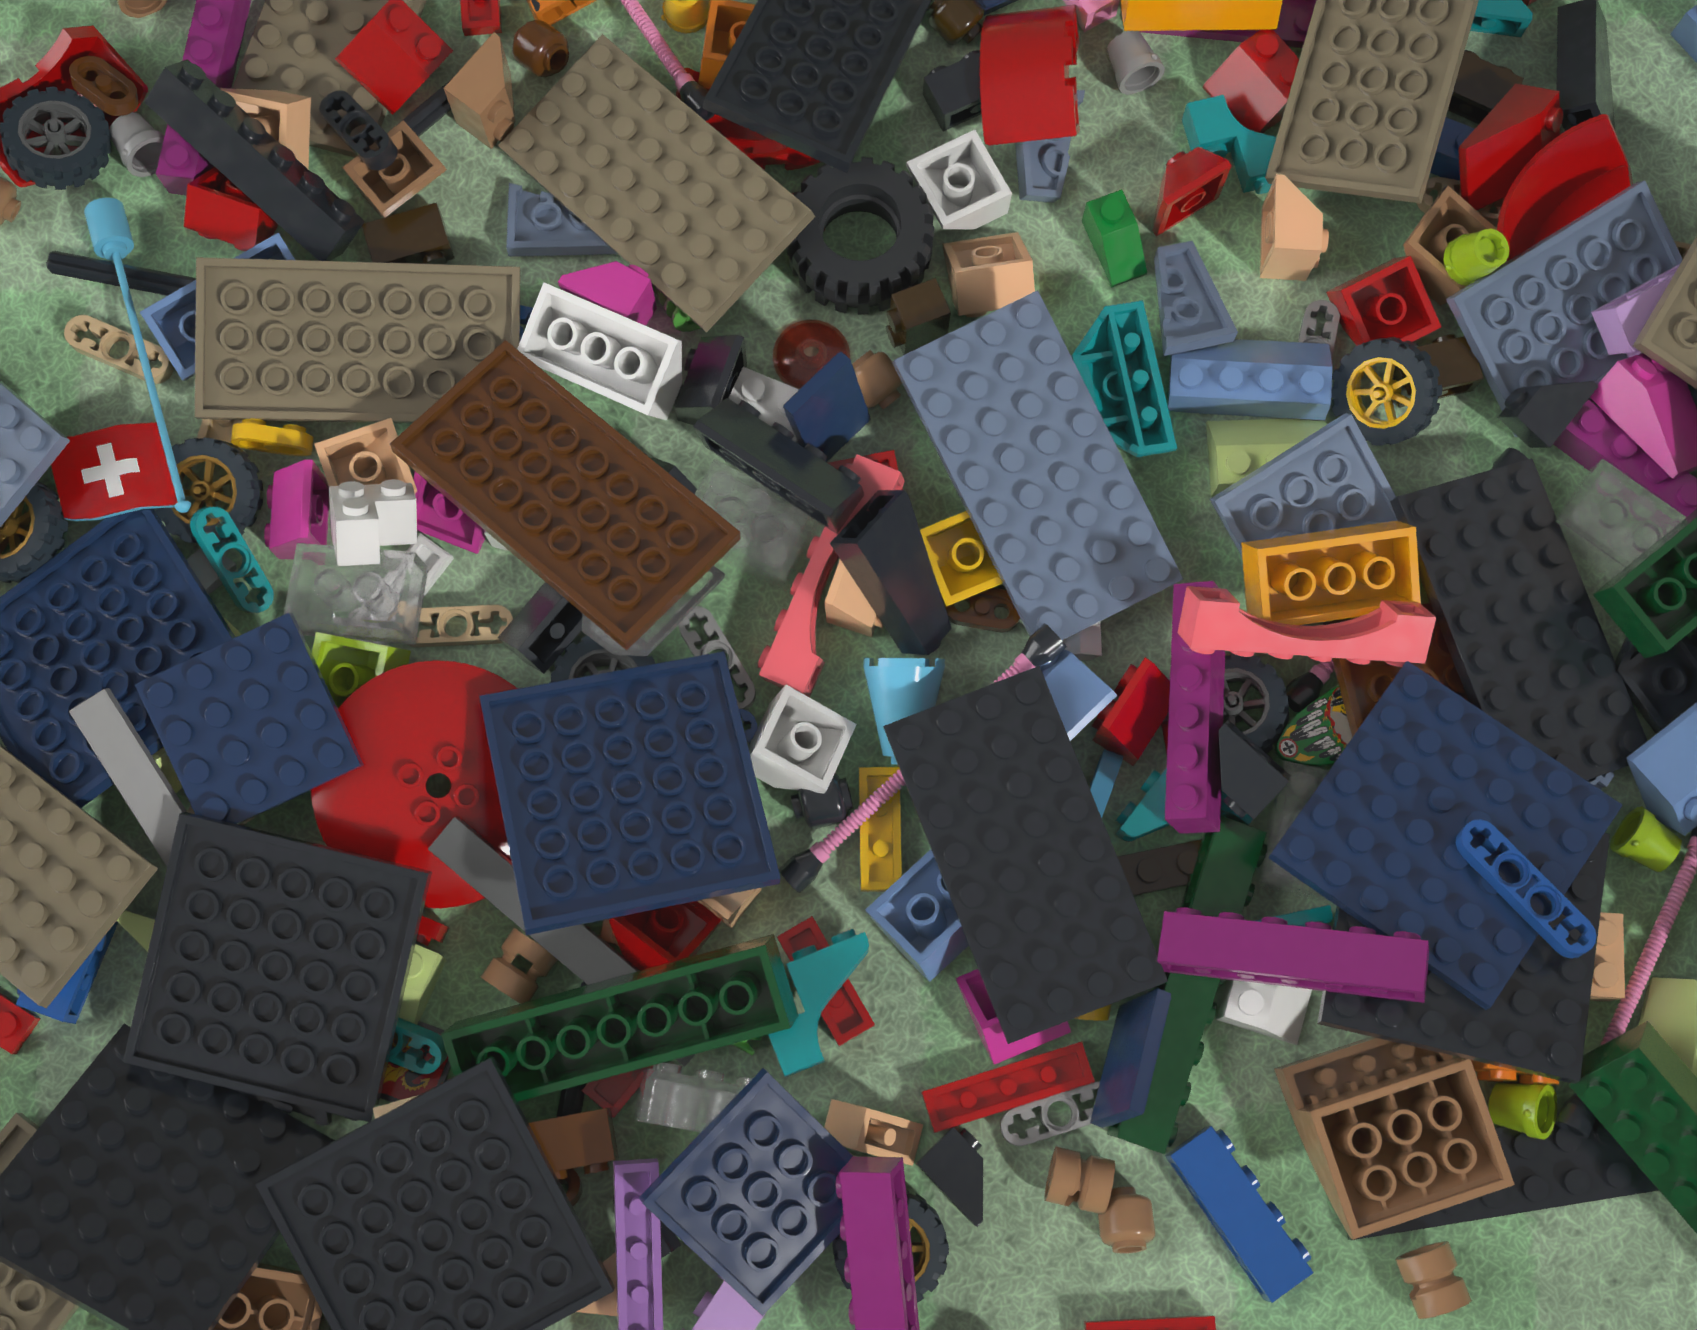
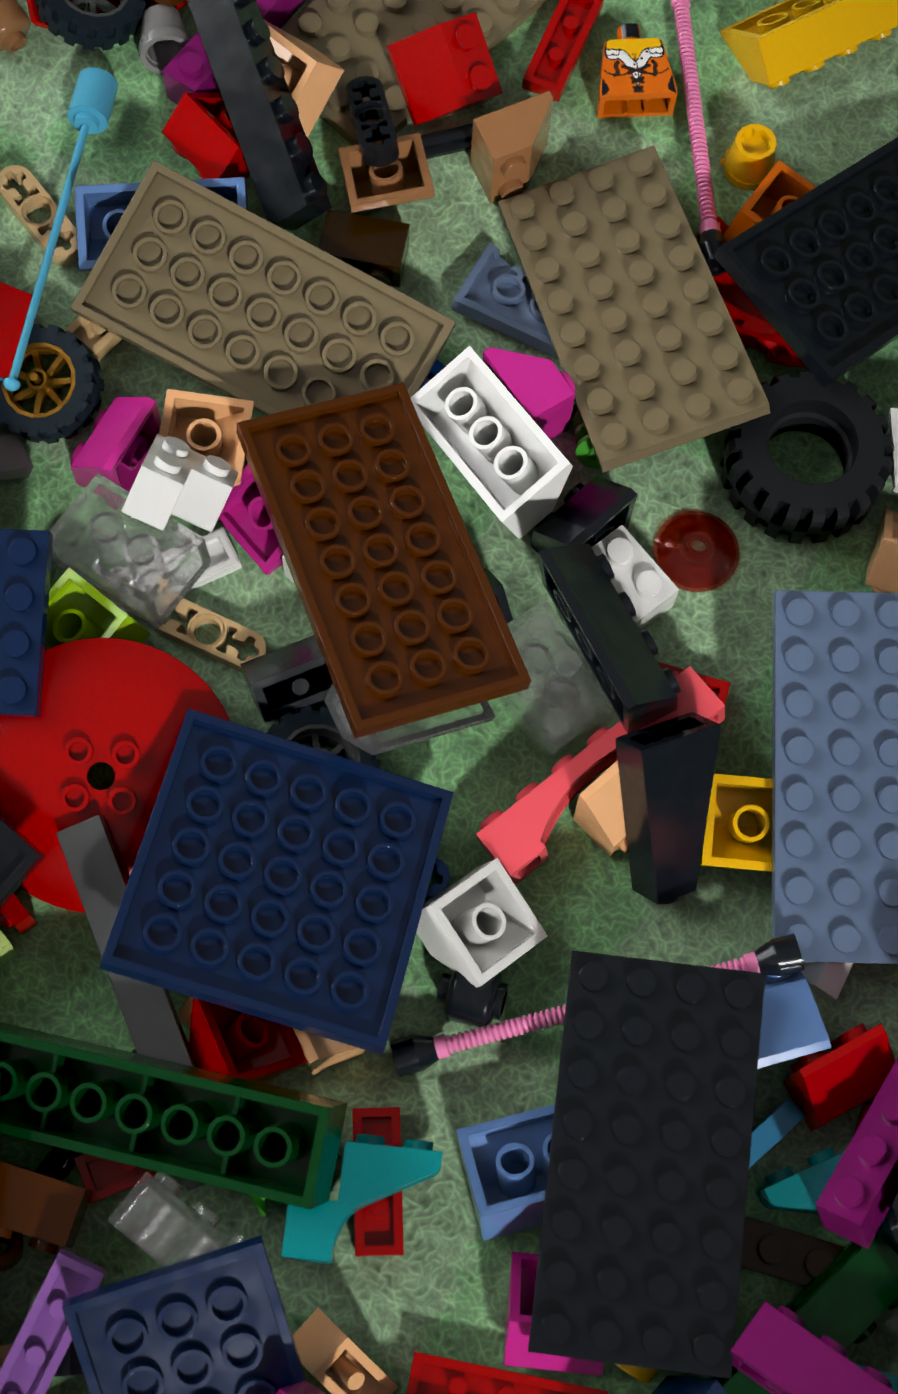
camera: 25 degrees right, 5 degrees down
(105, 272) = (65, 138): black axle -> none
(225, 529) = (38, 426): teal beam -> none
(257, 436) = (119, 356): yellow plate -> none
(512, 980) = (66, 1006): medium nougat wheel -> none
(540, 48) = (587, 132): reddish brown head -> none
(712, 628) = (454, 766): light grey beam -> none
(828, 407) = (685, 606): dark blue tile -> none
(877, 379) = (746, 604): medium nougat head -> none
(879, 834) = (512, 1060): yellow plate -> none
(901, 689) = (611, 924): medium azure cone -> none
(917, 316) = (823, 561): dark brown brick -> none
(981, 612) = (735, 890): reddish brown plate -> none

